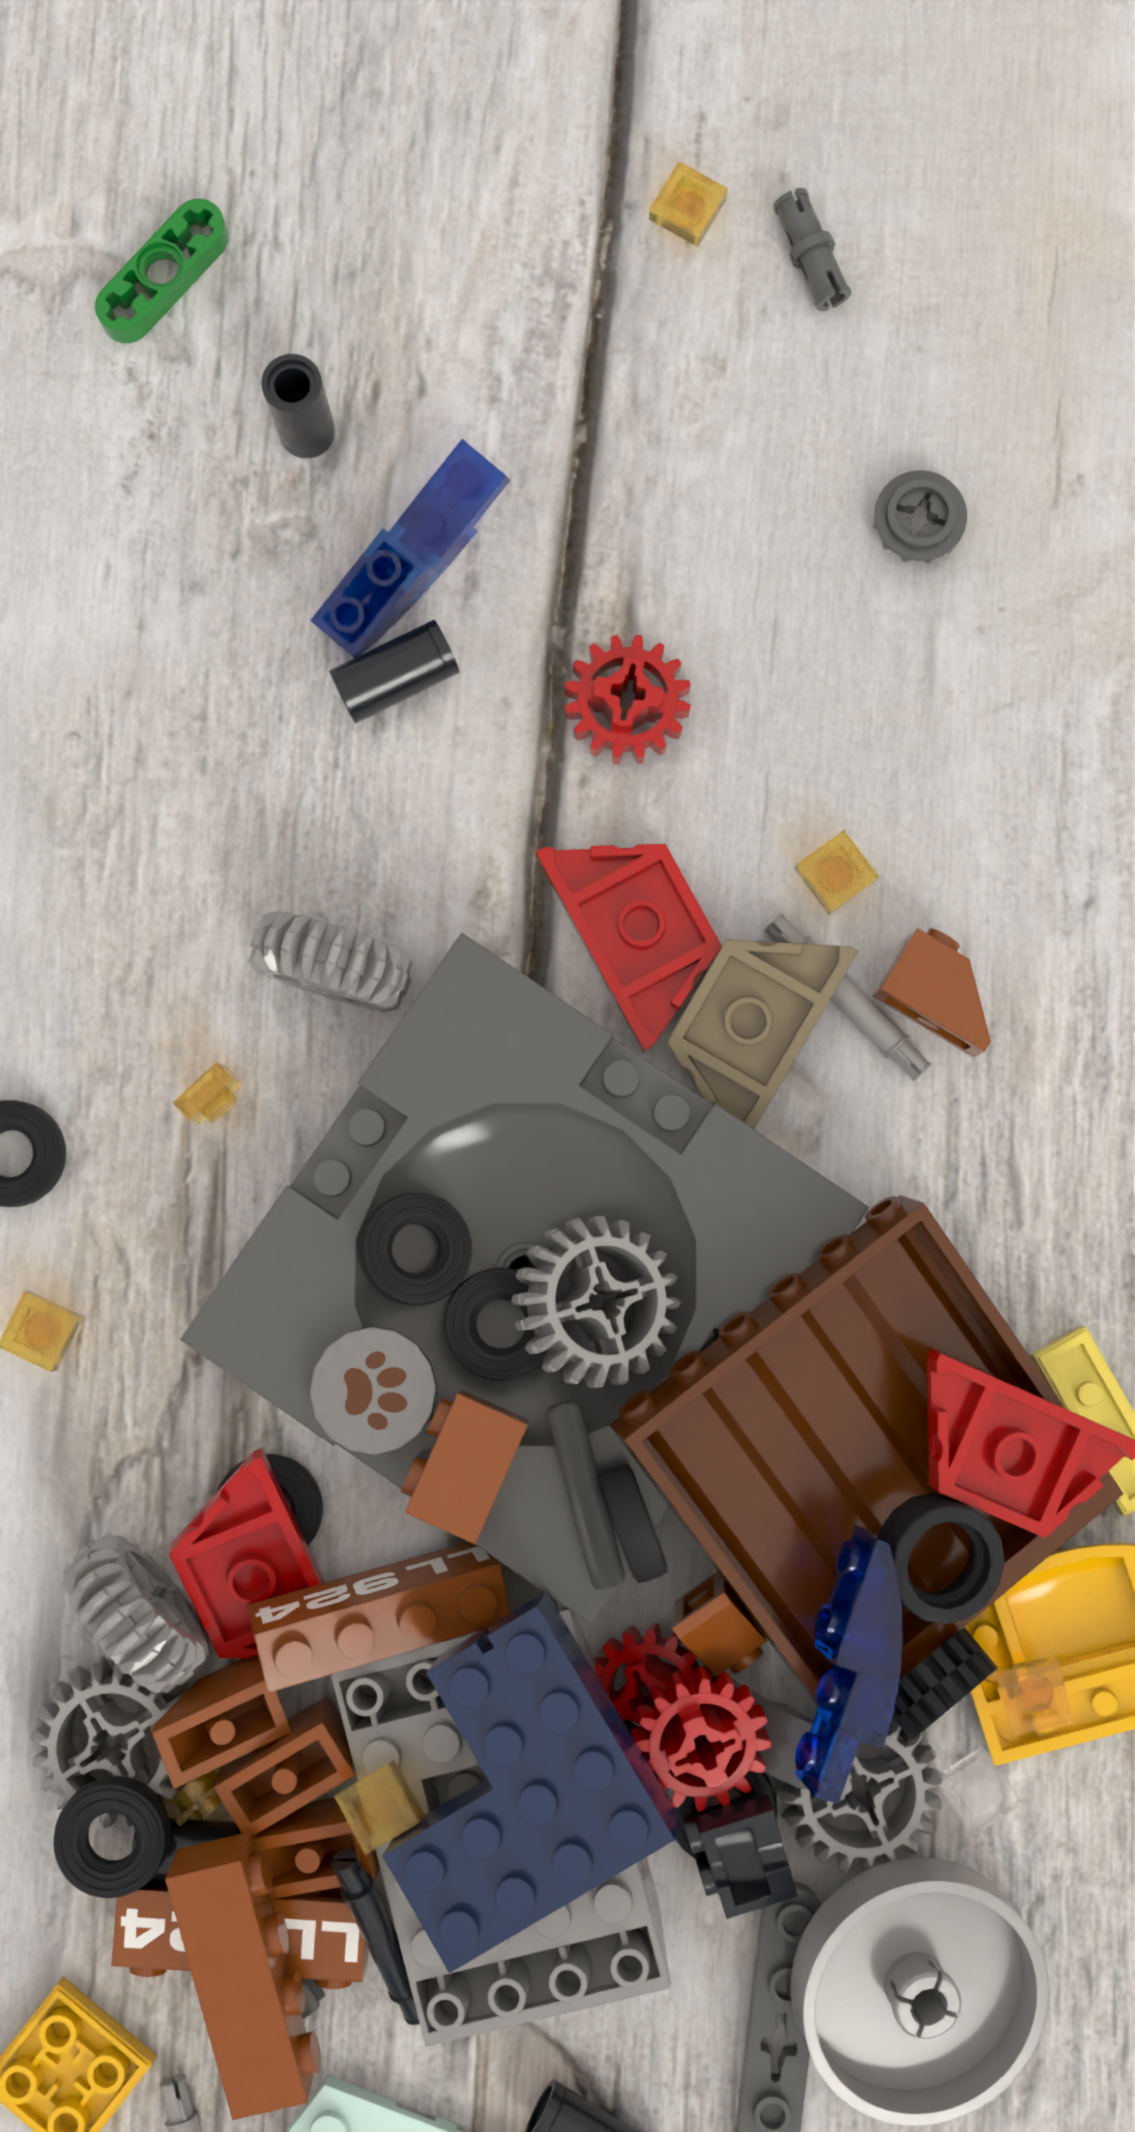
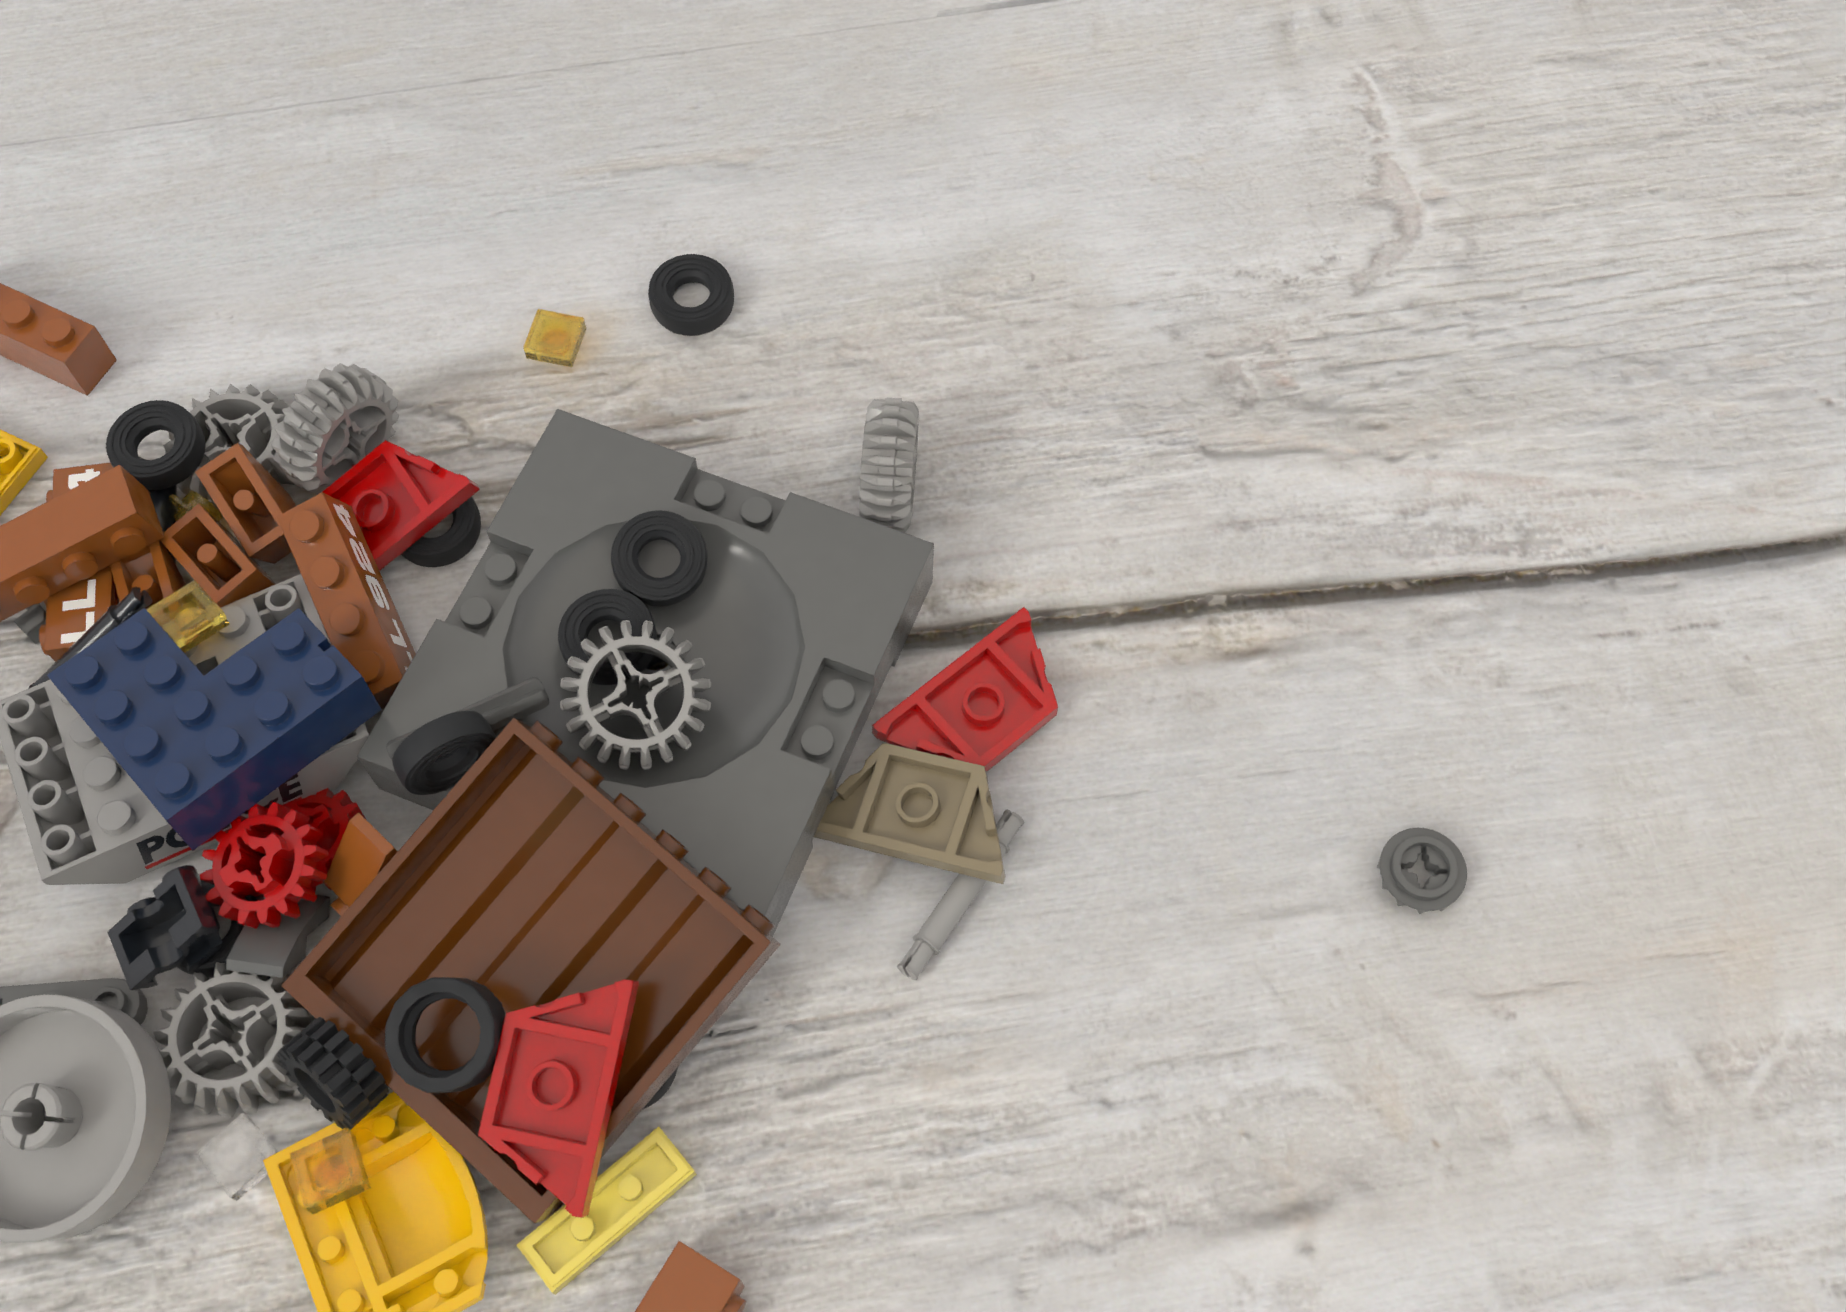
camera: 75 degrees right, 20 degrees down
(161, 245) = (1427, 277): green beam -> none
(209, 1095) = (765, 411): clear yellow plate -> none
(298, 405) = (1339, 356): black pin -> none
(373, 1390) = (535, 547): flat silver tile -> none
(394, 671) = (1146, 475): black pin -> none
(413, 553) = (1242, 469): clear blue slope -> none
(465, 1465) = (480, 621): dark orange brick -> none
(605, 697) = (1196, 647): red gear -> none
(688, 204) = (1630, 621): clear yellow plate -> none
(812, 249) = (1631, 730): dark grey pin -> none
(836, 872) = (1071, 858): clear yellow plate -> none
(864, 1641) = (346, 976): clear blue slope -> none
(937, 990) = (985, 963): dark orange slope -> none

